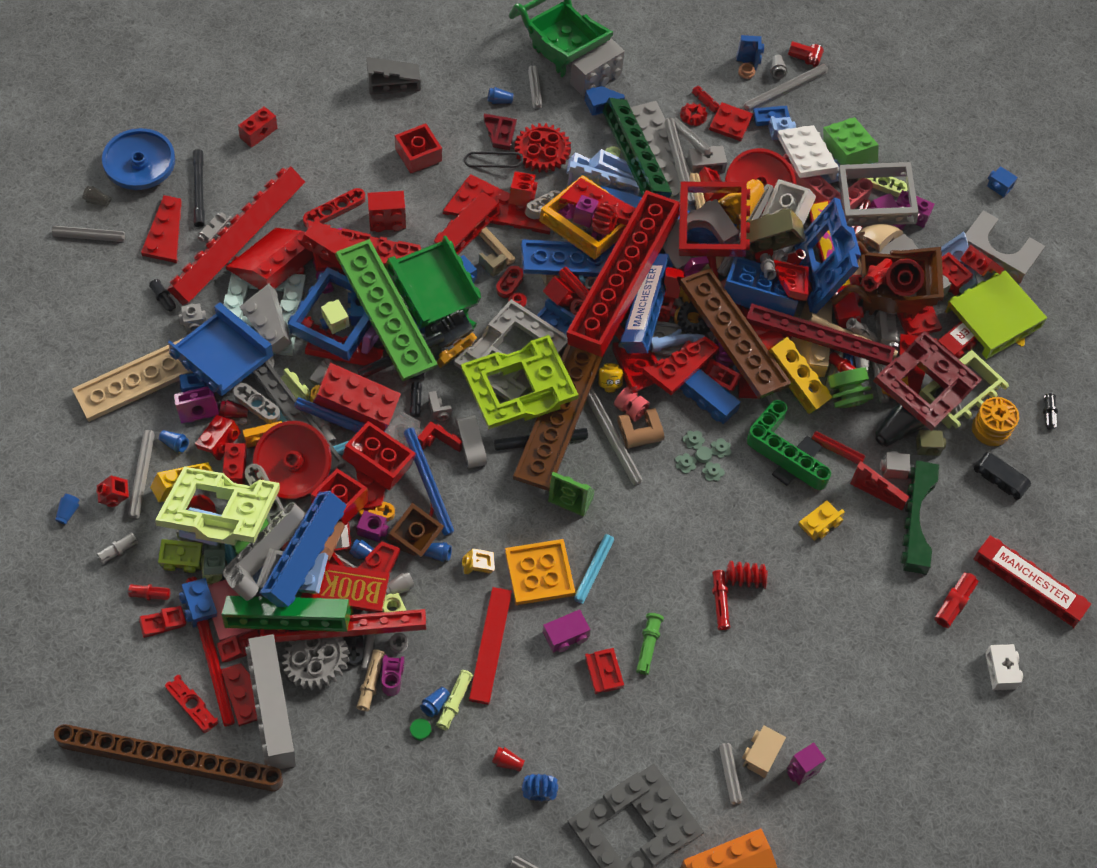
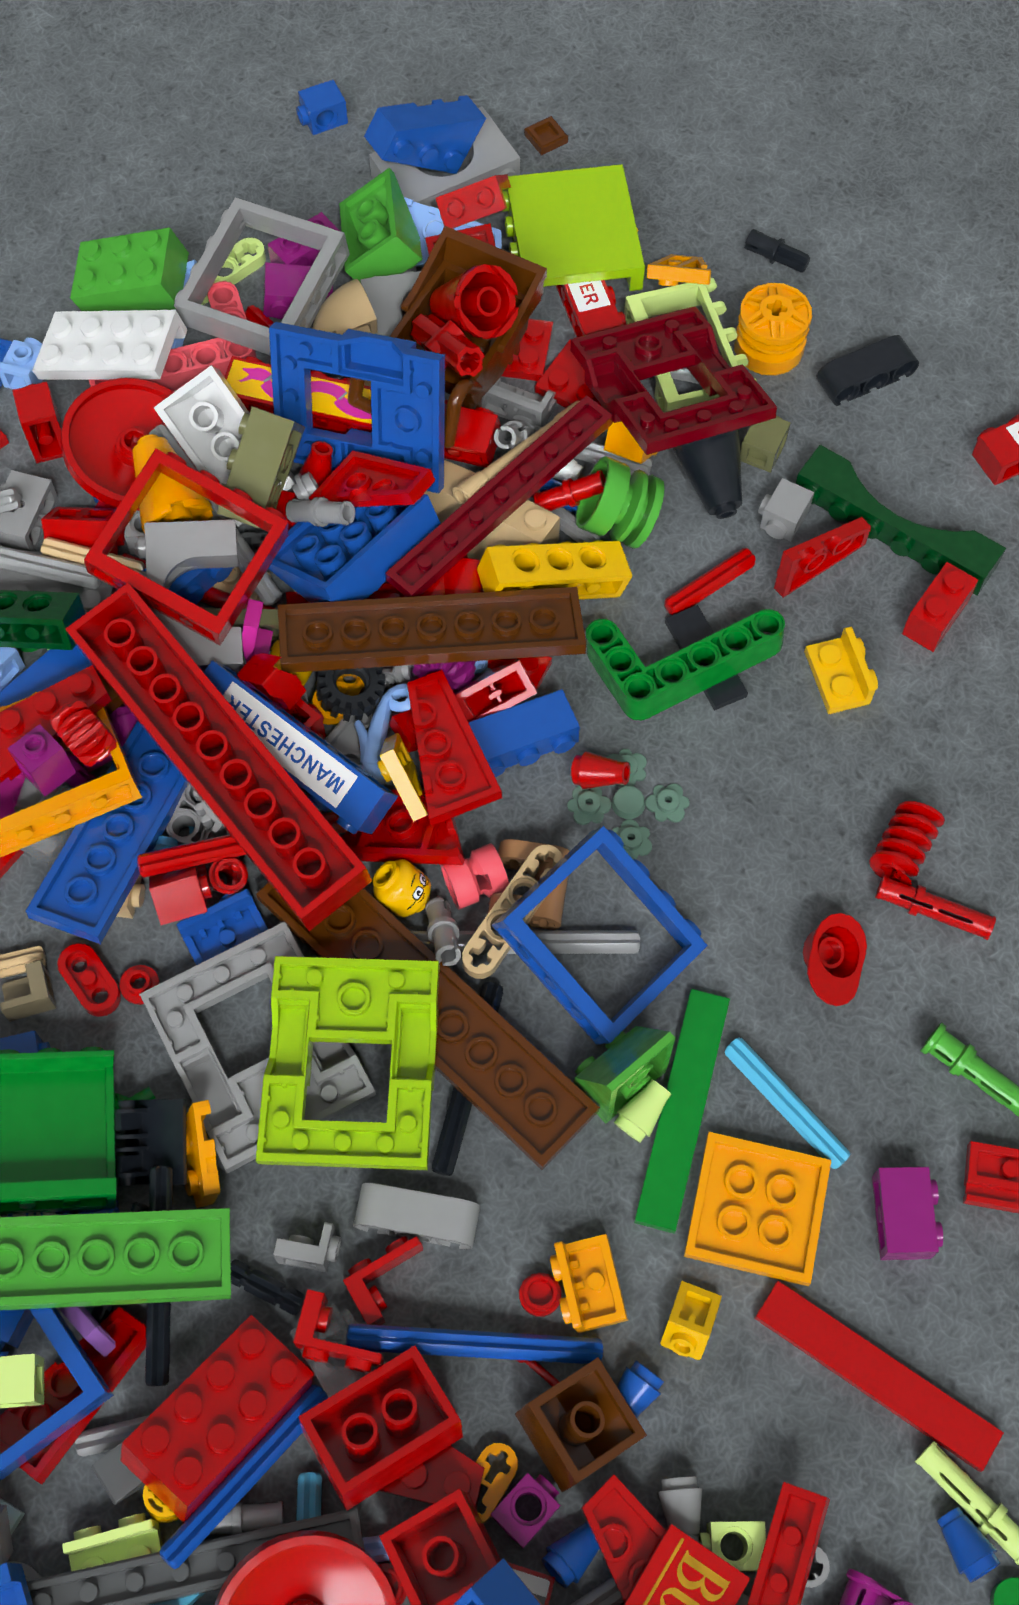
camera: 60 degrees left, 5 degrees up
(405, 413) = (315, 1319): none -> red bracket
(461, 501) = (540, 1294): none -> red plate
(474, 515) = (589, 1283): none -> light orange bracket
(557, 509) = (642, 1111): none -> yellowish green cone
(570, 528) = (682, 1112): none -> green tile
(598, 399) = (443, 931): none -> light grey pin
(598, 448) = (553, 973): none -> blue window
(621, 418) = (505, 901): none -> tan beam
(661, 348) = (399, 767): none -> yellow wing
(669, 561) = (835, 958): none -> red piece
(709, 432) = (598, 771): none -> red cone
(753, 139) = (39, 420): none -> red brick
(881, 550) = (939, 606): none -> red brick
(939, 230) = (379, 230): none -> bright green slope
(1003, 368) = (679, 269): none -> light orange wing
(1005, 227) = (426, 135): none -> blue wedge
(1053, 283) = (546, 135): none -> reddish brown tile

